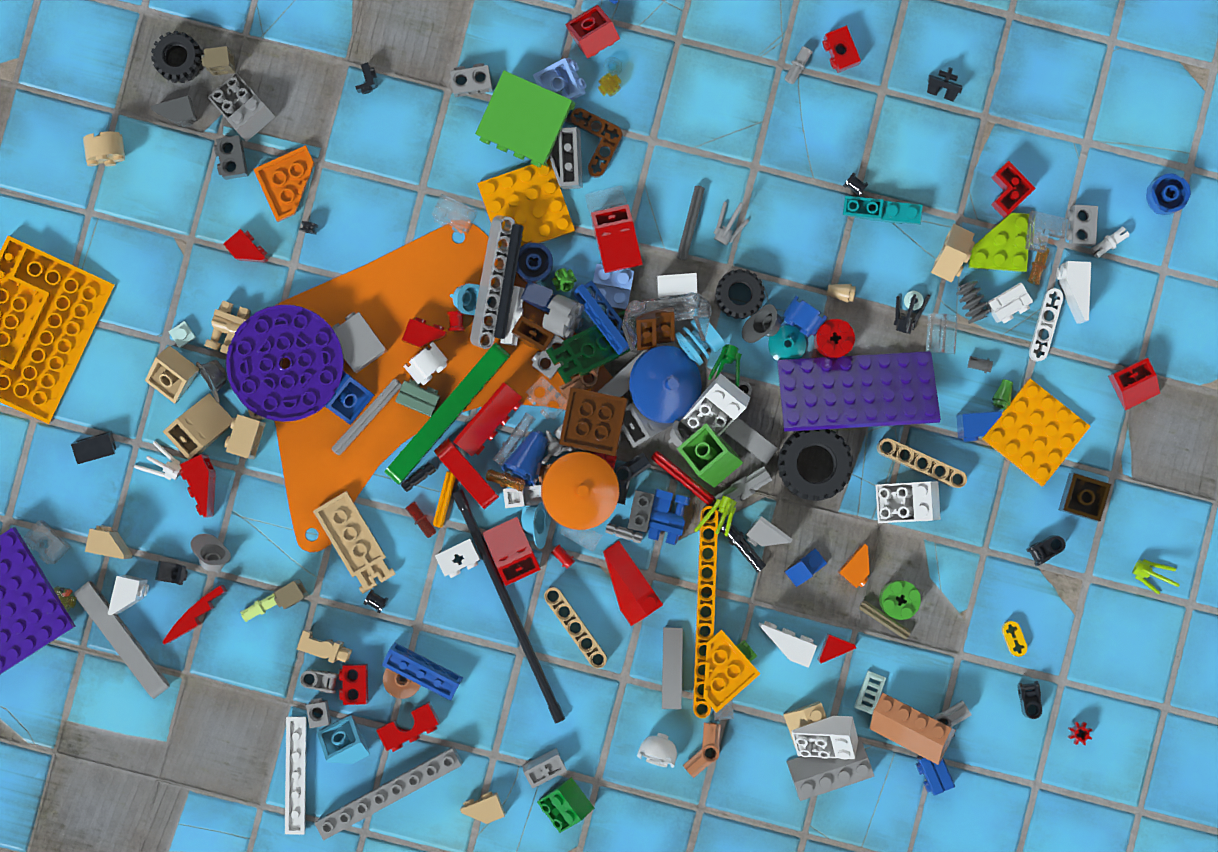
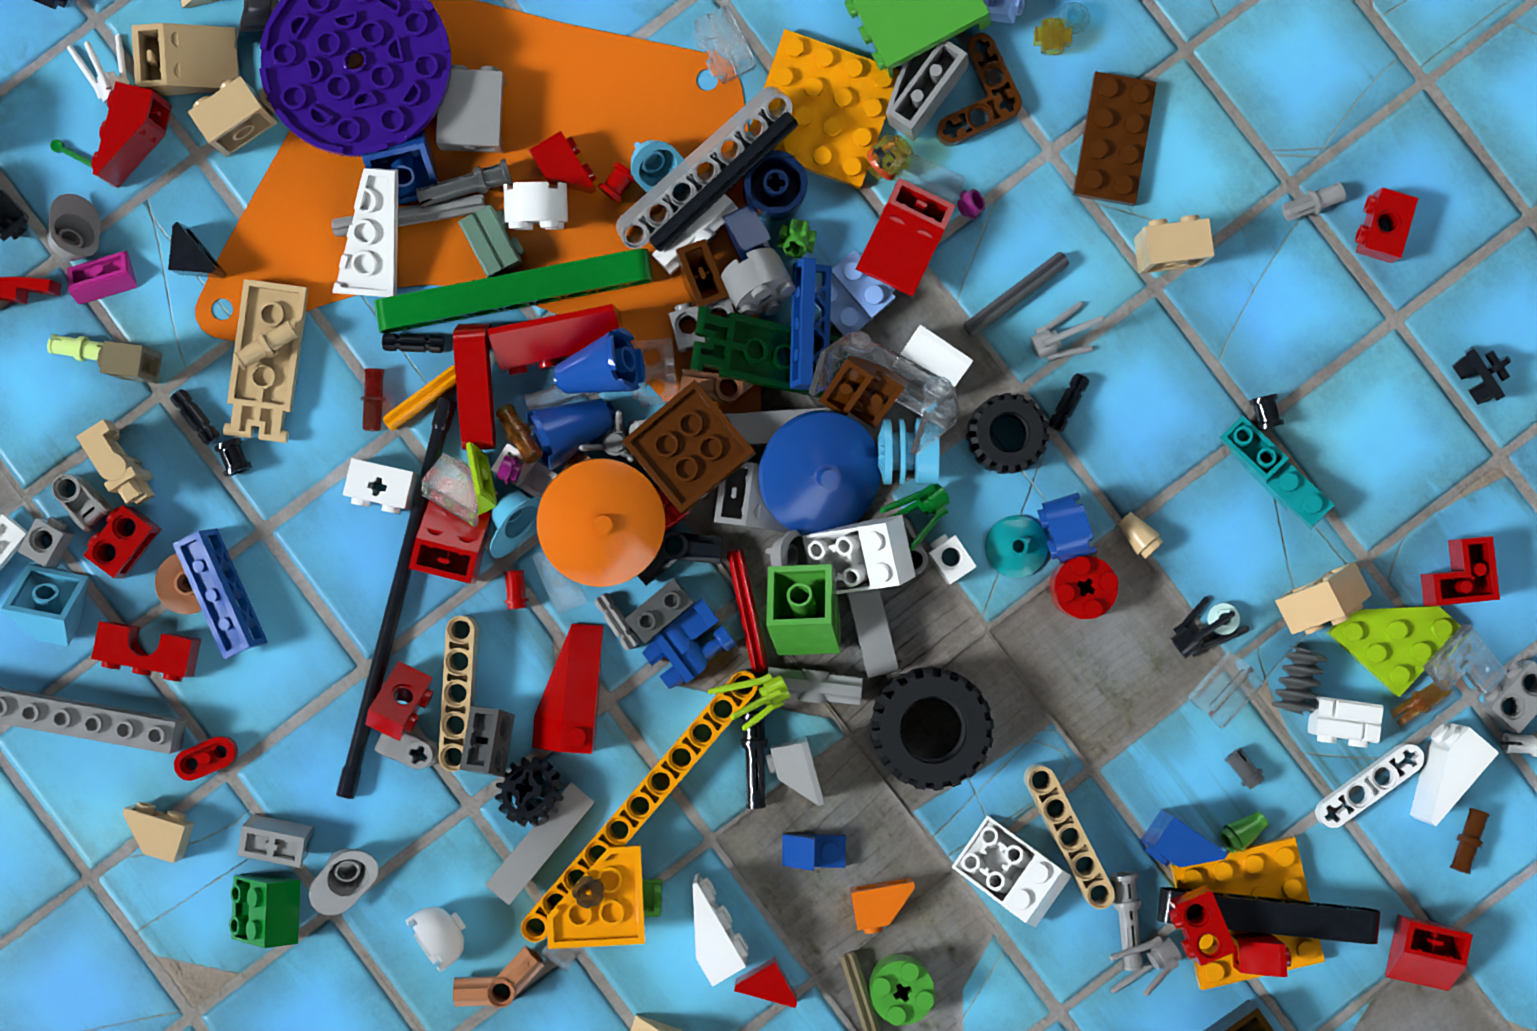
camera: 40 degrees right, 0 degrees up
(168, 519) = (58, 147): none -> green hinge
(241, 565) = (101, 277): none -> dark pink slope
(277, 520) = (190, 256): none -> black slope
(340, 596) = (194, 416): none -> black axle
(350, 534) = (265, 345): none -> tan pin
(363, 448) = (372, 242): none -> white wing
(388, 373) = (480, 180): none -> dark grey pin
(478, 755) = (207, 758): none -> red plate
(495, 531) = (452, 488): none -> clear slope
(504, 516) = (482, 478): none -> lime slope
(515, 500) = (509, 469): none -> magenta plate
(521, 415) = (603, 366): none -> blue cone
(551, 663) = (404, 685): none -> red brick
(567, 673) = (406, 749): none -> light grey piece
(577, 205) = (889, 157): none -> clear yellow head
(592, 760) = (342, 881): none -> light grey piece
(608, 639) = (487, 741): none -> dark grey brick
(634, 196) = (971, 203): none -> magenta plate
(640, 644) = (529, 804): none -> black gear
(678, 110) = (1114, 138): none -> reddish brown plate
(709, 670) = (582, 898): none -> clear smoke plate
(747, 141) = (1174, 245): none -> tan brick
(757, 255) = (1068, 402): none -> black axle
(763, 323) = (1007, 495): dark grey piece -> none
(768, 375) = (964, 562): none -> white brick
(858, 391) = (1060, 680): dark purple plate -> none
(975, 473) = (1127, 905): none -> light grey pin
(1011, 484) = (1162, 955): none -> light grey plant
(1017, 451) = (1207, 922): none -> red brick
(1045, 425) = (1285, 916): none -> black beam
(1055, 447) = (1260, 955): none -> red slope
(1114, 313) = (1469, 841): none -> reddish brown pin

